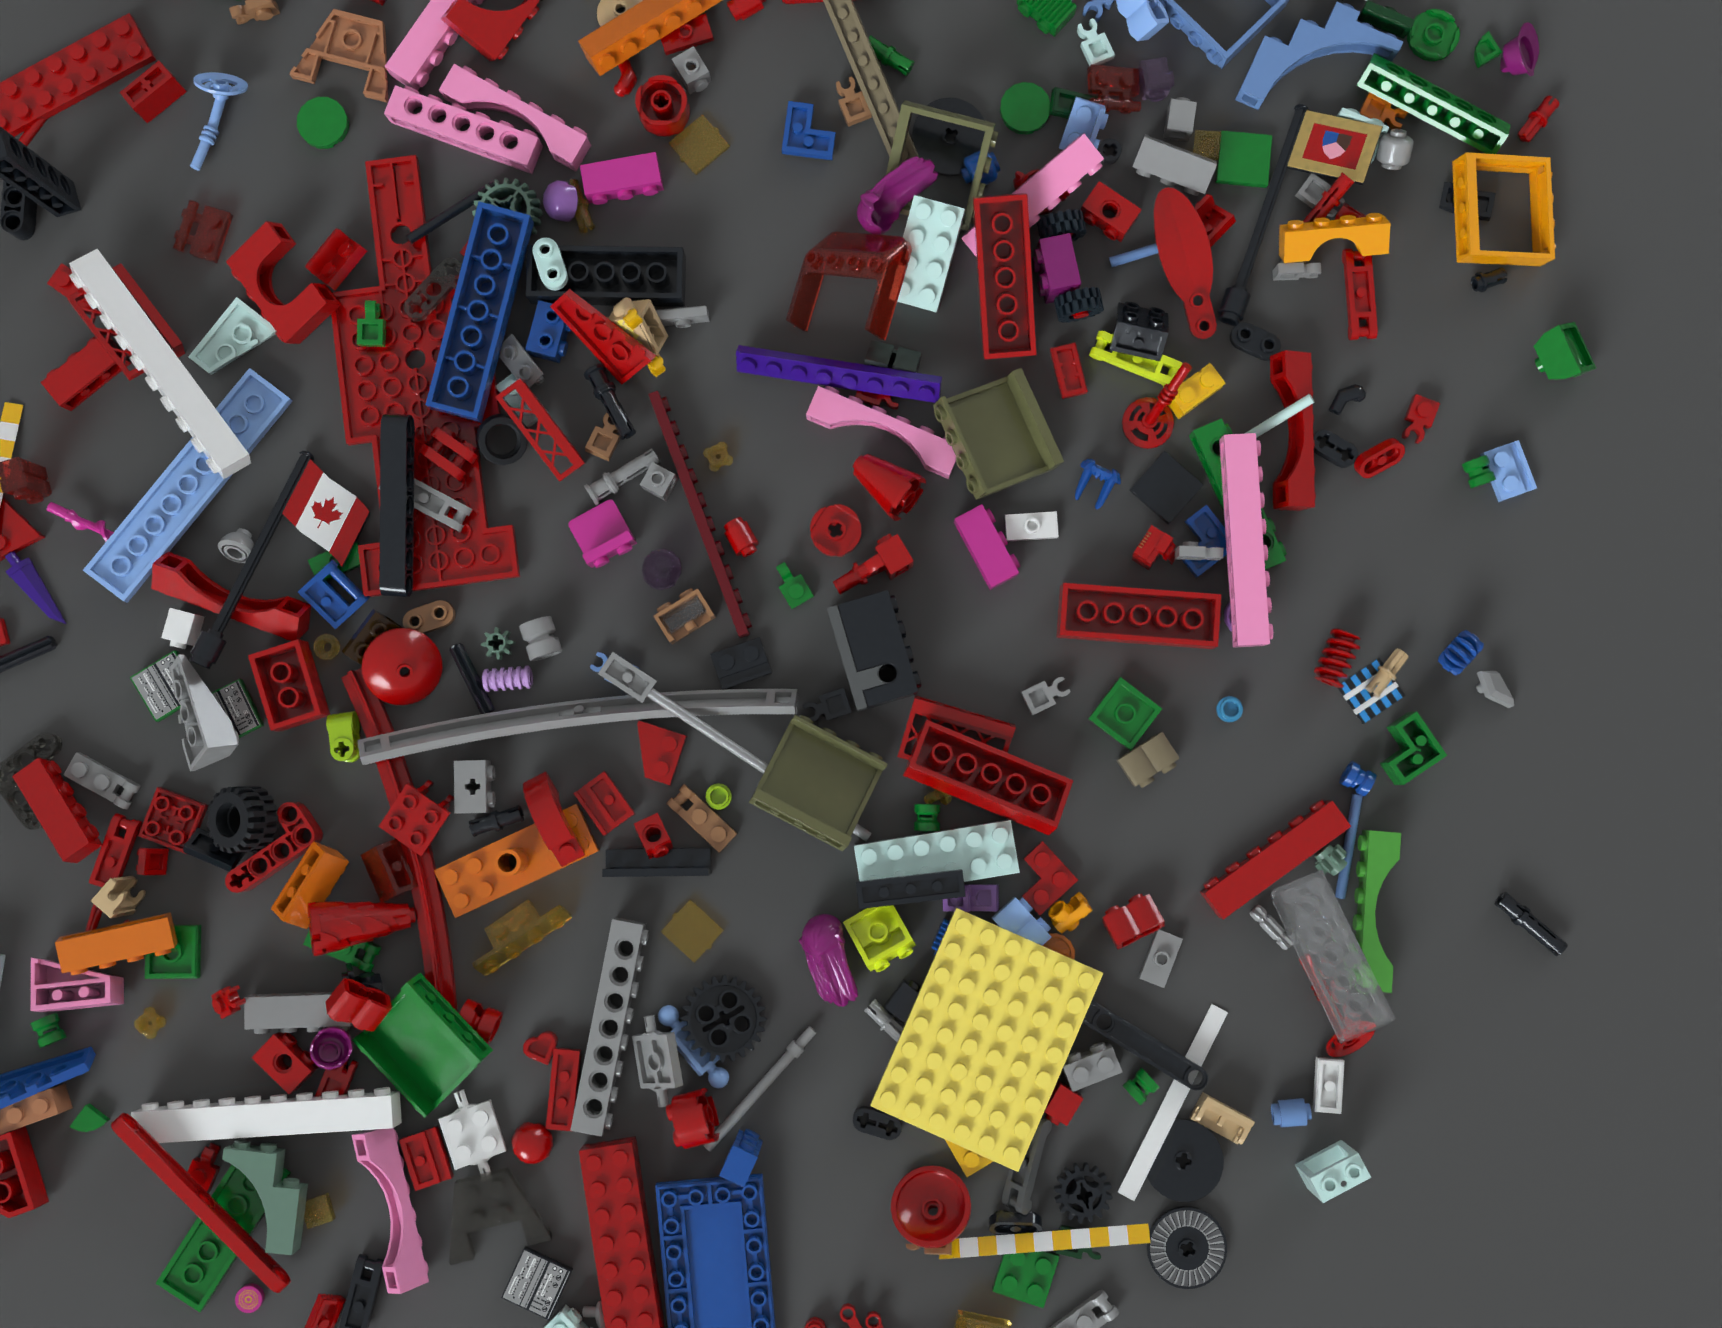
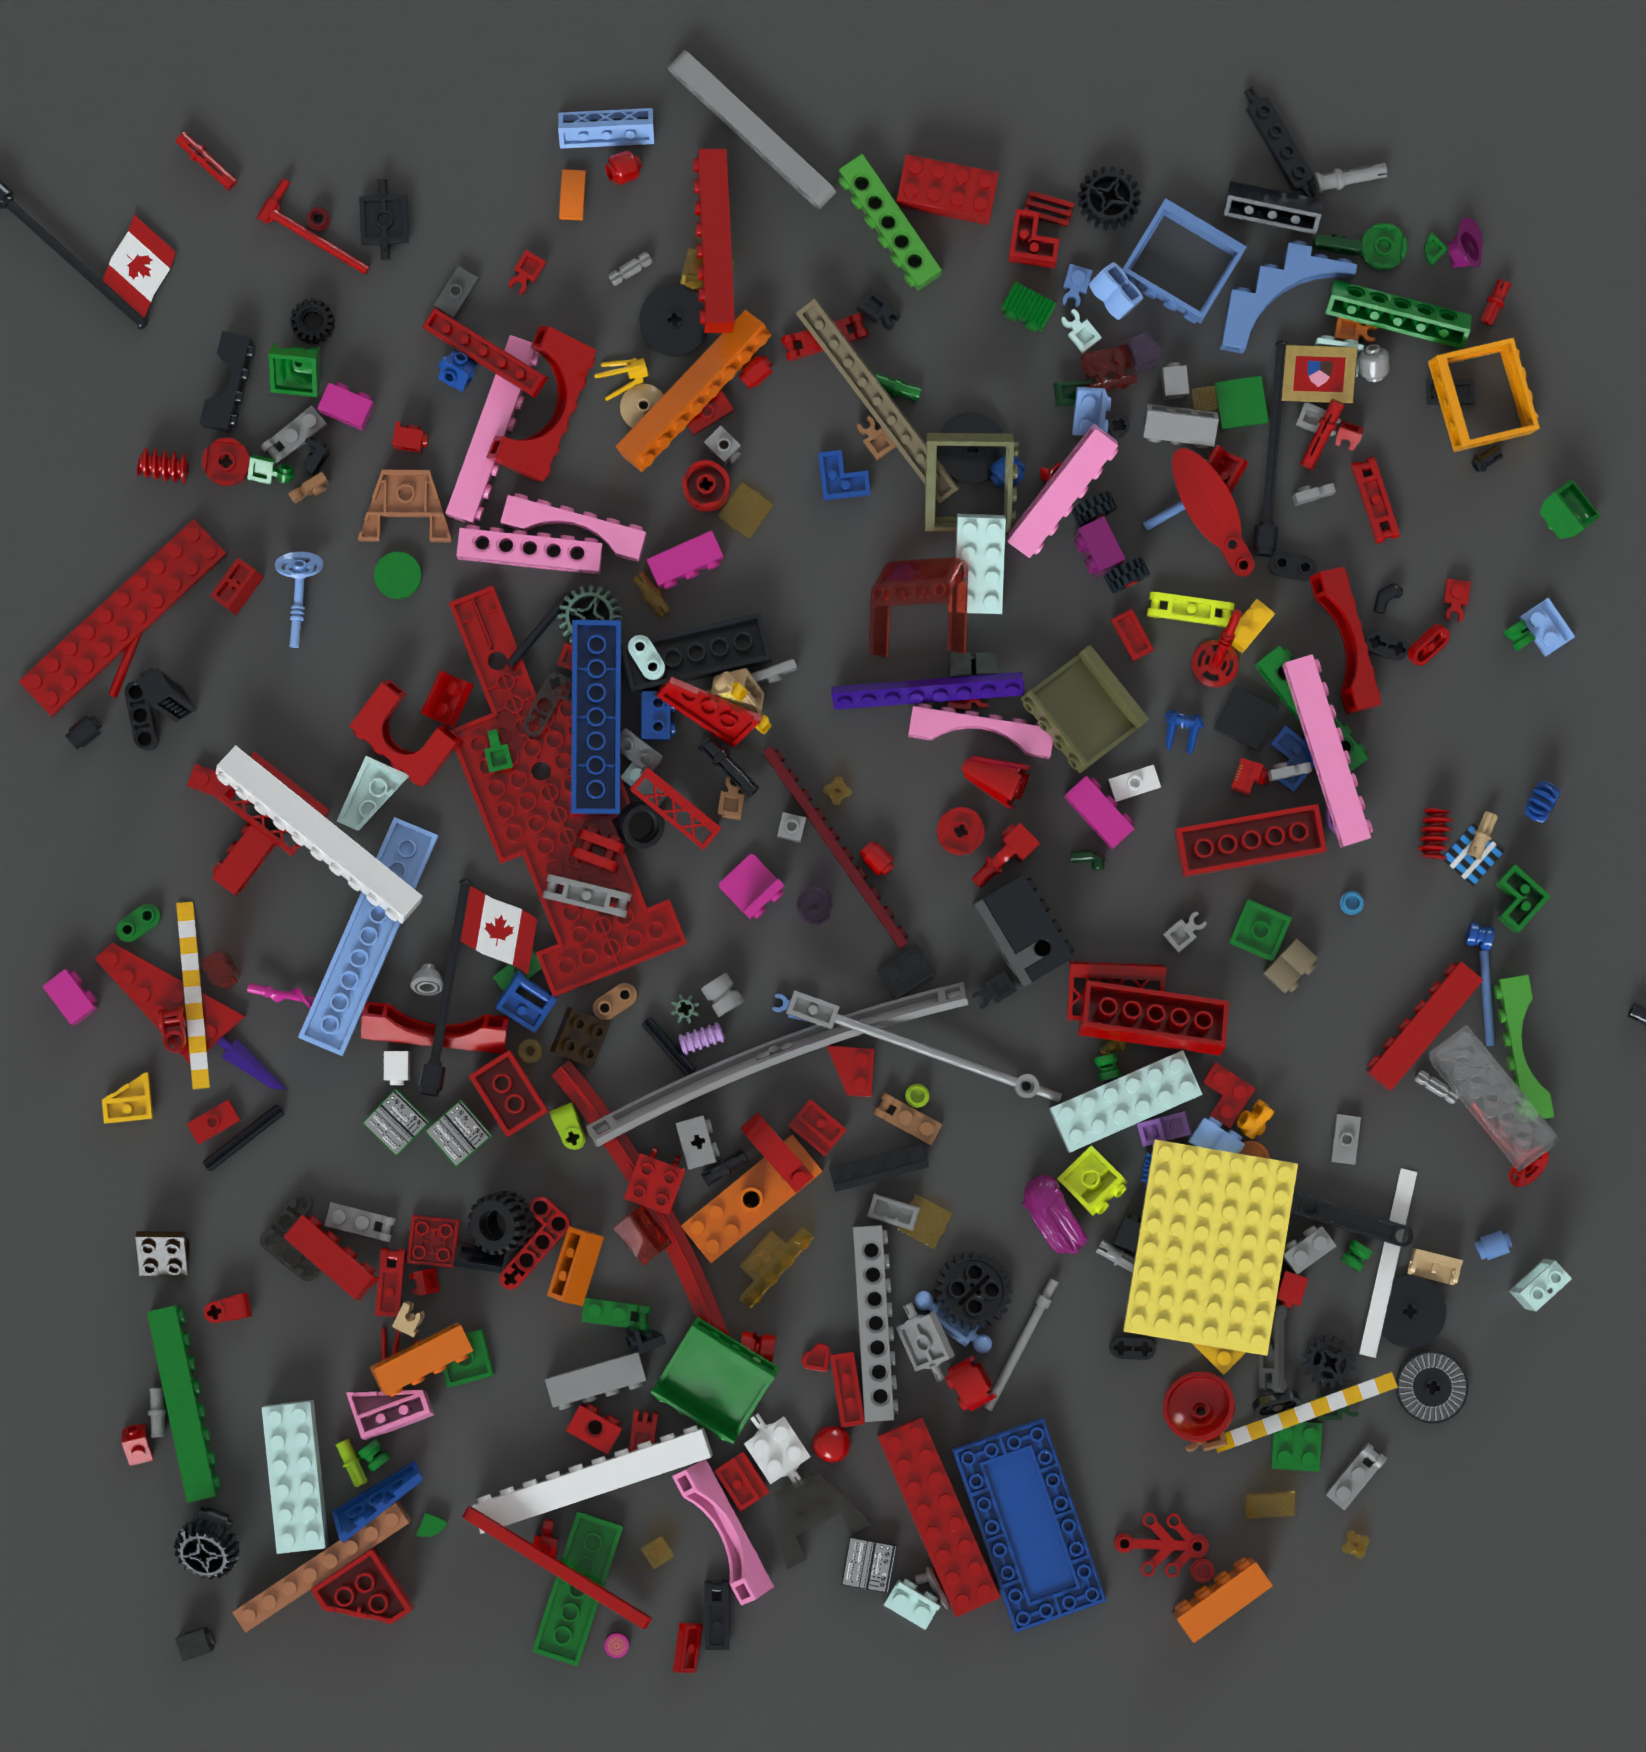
camera: 25 degrees left, 0 degrees up
(23, 1032) = (351, 1463): none -> lime axle
(144, 1028) = (460, 1419): clear yellow plate -> none
(206, 724) = (445, 1147): light grey wedge -> none
(209, 234) = (322, 702): clear red plate -> none
(227, 1001) = (529, 1387): red plate -> none
(282, 1200) = (627, 1546): sand green arch -> none
(331, 1048) = (634, 1403): magenta hair -> none
(343, 924) = (619, 1291): red cone -> none
(358, 1005) = (651, 1358): red brick -> none
(396, 505) = (567, 908): black beam -> none
(397, 650) = (592, 1049): red dish -> none
(560, 200) = (636, 595): medium lavender hair -> none
(612, 481) = (748, 837): light grey pin -> none
(627, 80) = (665, 470): red arm -> none
(649, 827) = (863, 1138): red brick -> none
(661, 913) = (893, 1212): none -> light grey plate
(684, 615) = (845, 941): medium nougat window -> none
(742, 1157) = (1023, 1403): blue arch -> none
(795, 588) = (937, 893): green plate -> none
(818, 782) = (1004, 1059): olive panel -> none
(883, 203) = (931, 528): magenta hair -> none
(910, 889) = (1110, 1132): black fence -> none
(963, 589) = (1088, 856): none -> dark green arm
(1004, 275) = (1055, 568): red brick -> none
(1025, 108) = (1032, 404): green tile -> none
(1103, 199) = (1146, 479): red brick -> none
(1133, 920) = (1312, 1112): red brick -> none
(1140, 331) = (1187, 584): black bracket -> none
(1282, 415) = (1330, 632): light aqua bar -> none
(1301, 239) = (1311, 467): light orange arch -> none
(1328, 1085) = (1520, 1213): white plate -> none
(1330, 859) = (1473, 1013): sand green gear -> none
(1494, 688) = (1580, 825): light grey piece -> none

